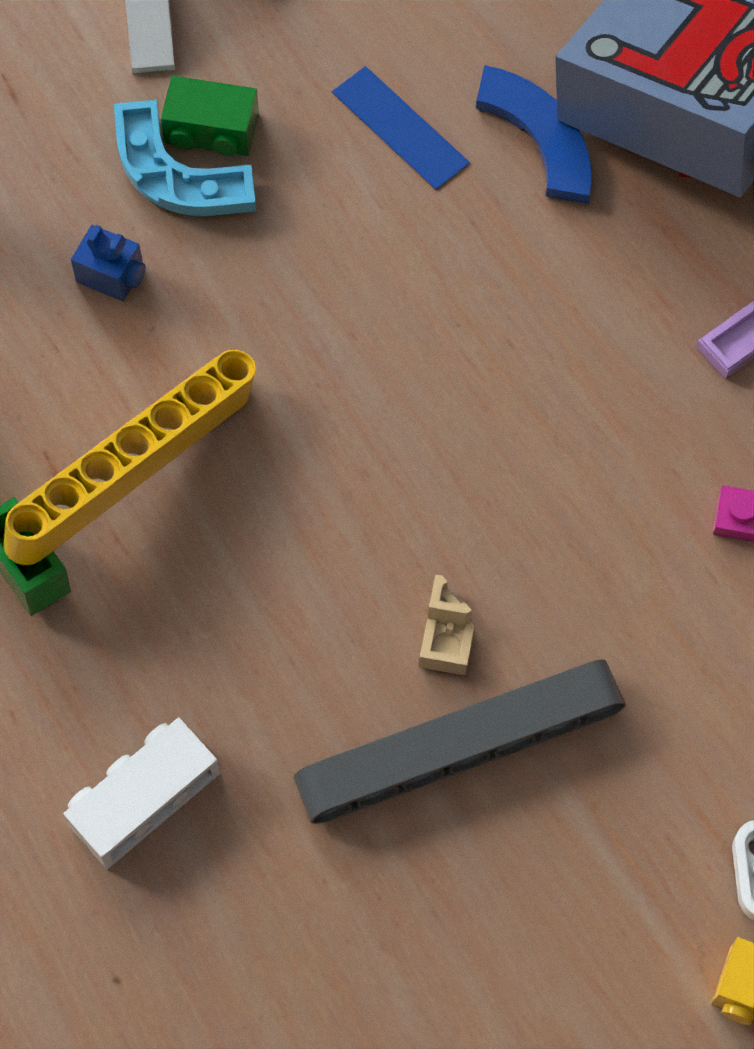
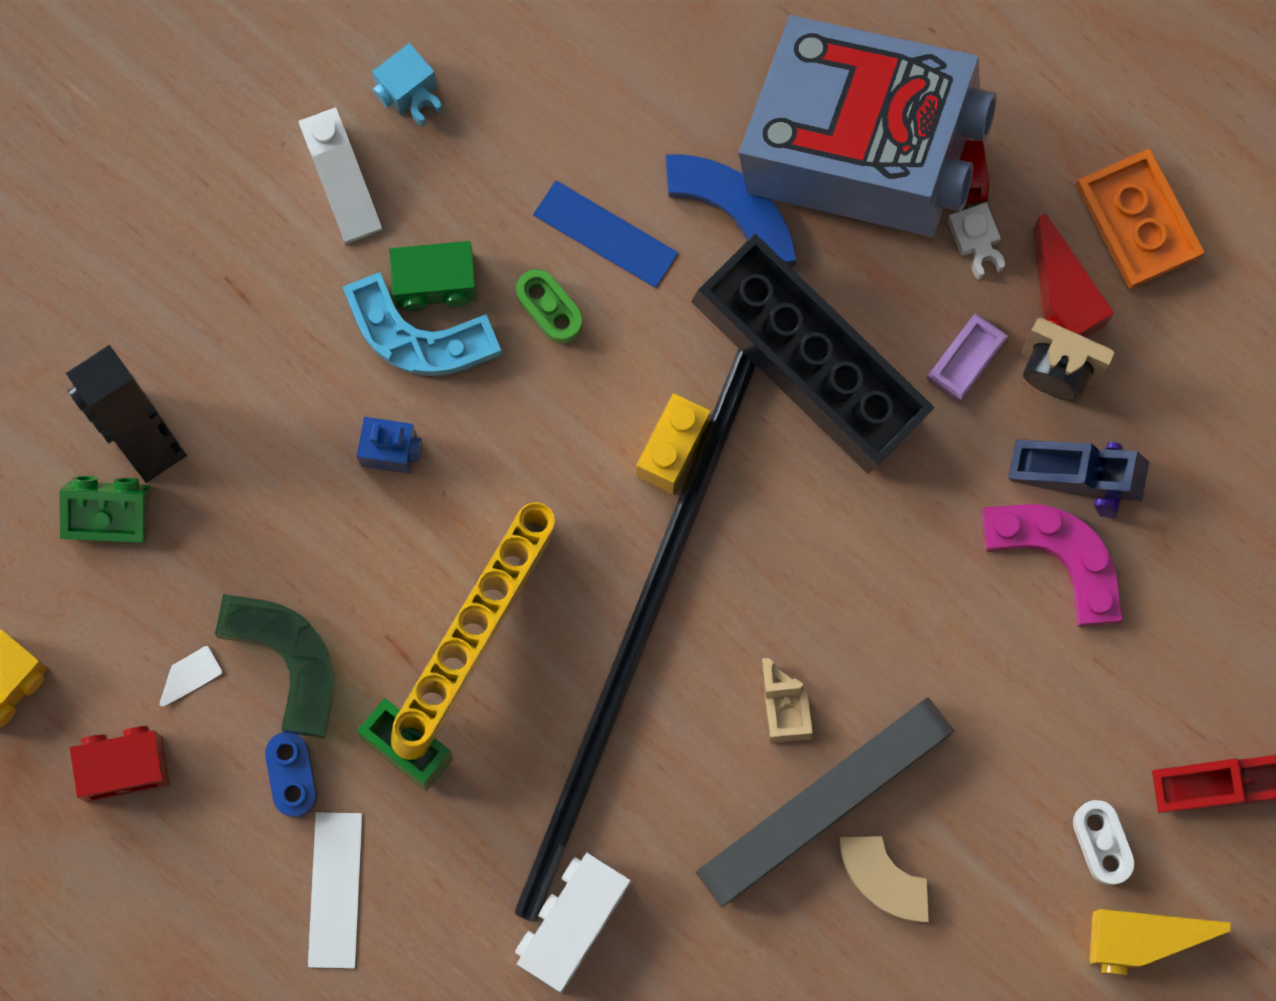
camera: 15 degrees left, 10 degrees up
(316, 506) = (634, 640): none -> black axle
(320, 179) = (549, 308): none -> bright green plate
(405, 335) = (673, 443): none -> yellow brick
(499, 846) = (882, 881): none -> tan tile
(579, 279) = (811, 353): none -> black brick

